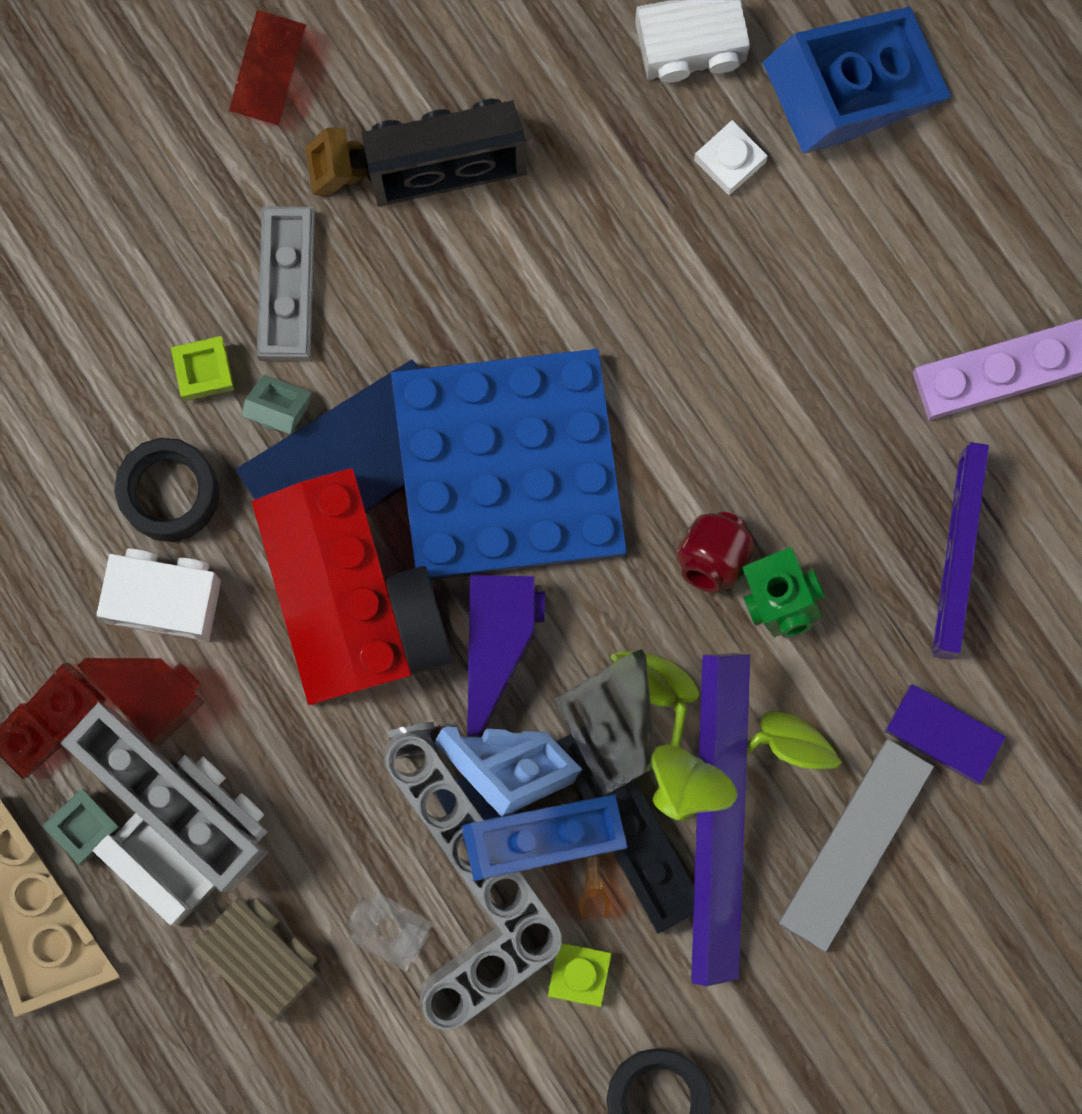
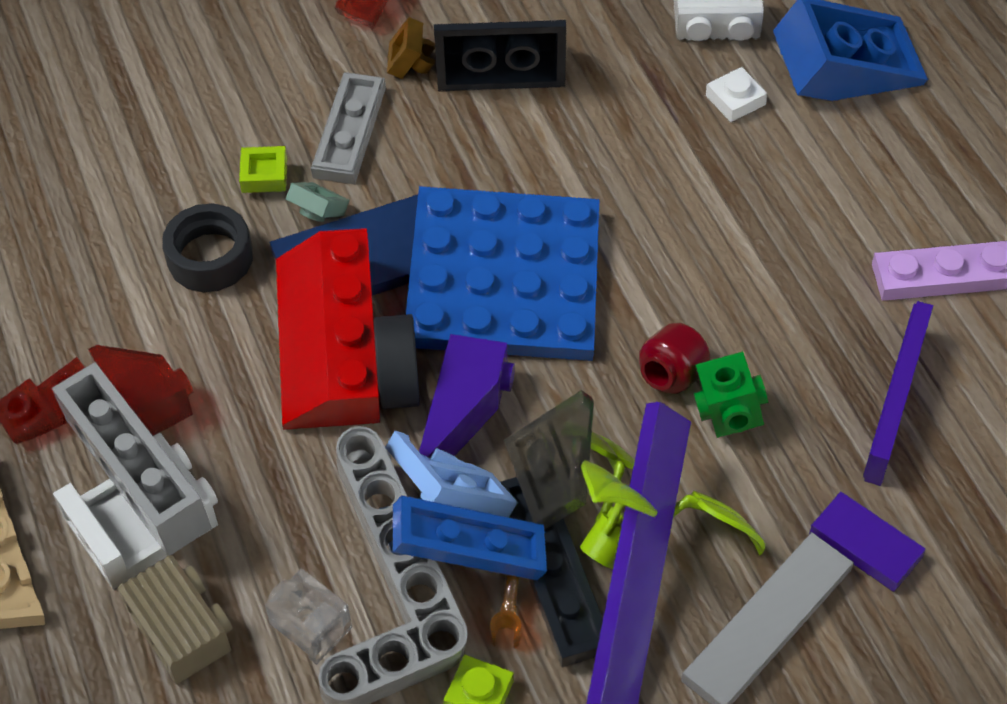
camera: 10 degrees right, 25 degrees down
(81, 826) = (44, 479): sand green plate -> none
(159, 595) = (176, 320): white brick -> none

